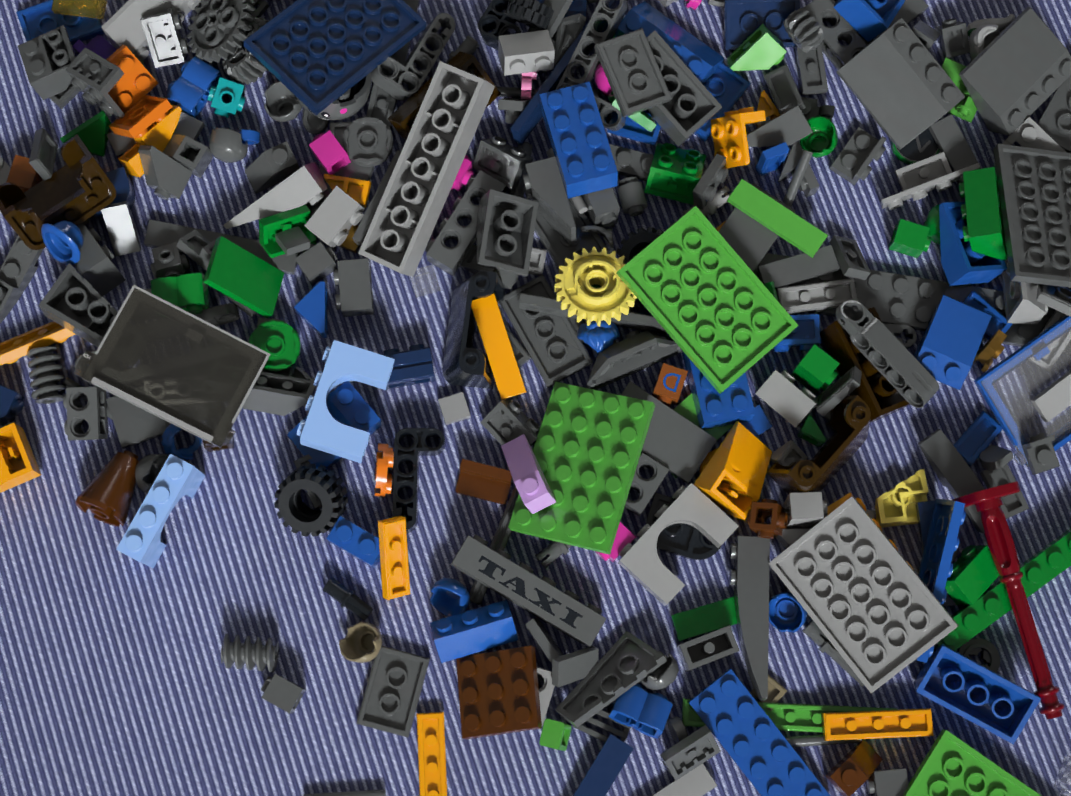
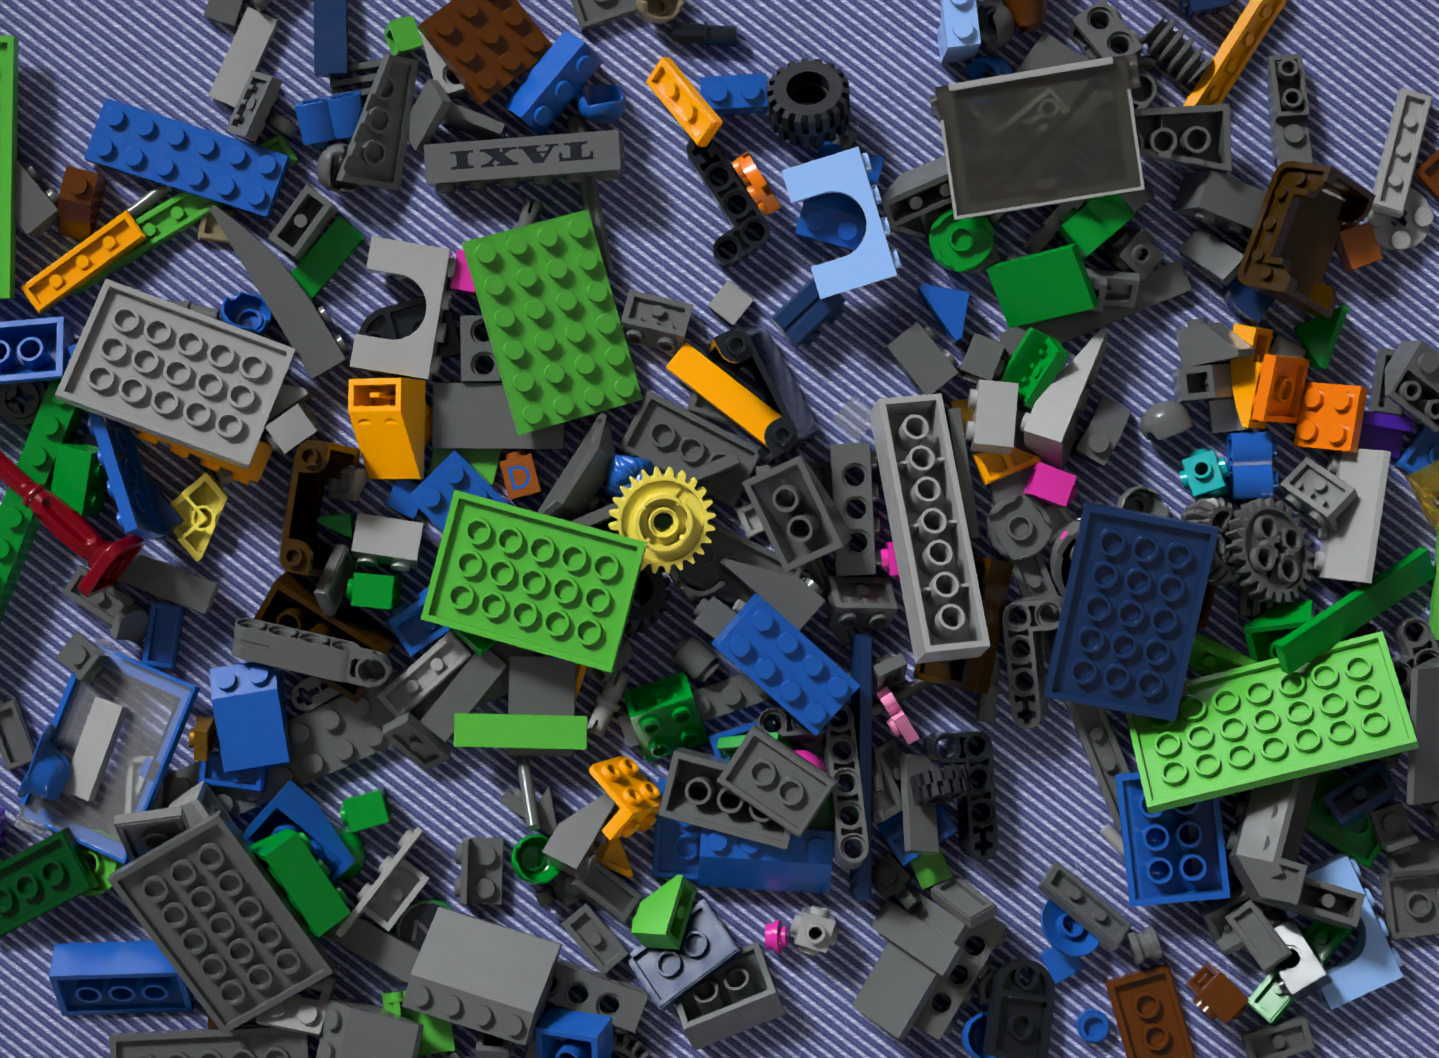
camera: 150 degrees right, 10 degrees up
(43, 154) = (1353, 279): dark grey tile -> none
(63, 241) = (1254, 190): blue hat -> none
(95, 79) = (1354, 391): dark grey bracket -> none
(249, 136) = (1152, 448): blue tile -> none
(292, 241) = (1020, 361): dark grey tile -> none
(484, 482) = (647, 246): reddish brown panel -> none
(526, 52) = (912, 736): light grey brick -> none
(527, 474) = (603, 273): lavender slope -> none
(708, 184) = (618, 713): dark grey plate -> none
(761, 512) = (332, 385): reddish brown brick -> none
(772, 159) = (568, 797): blue tile -> none
(803, 30) = (627, 968): dark grey gear -> none

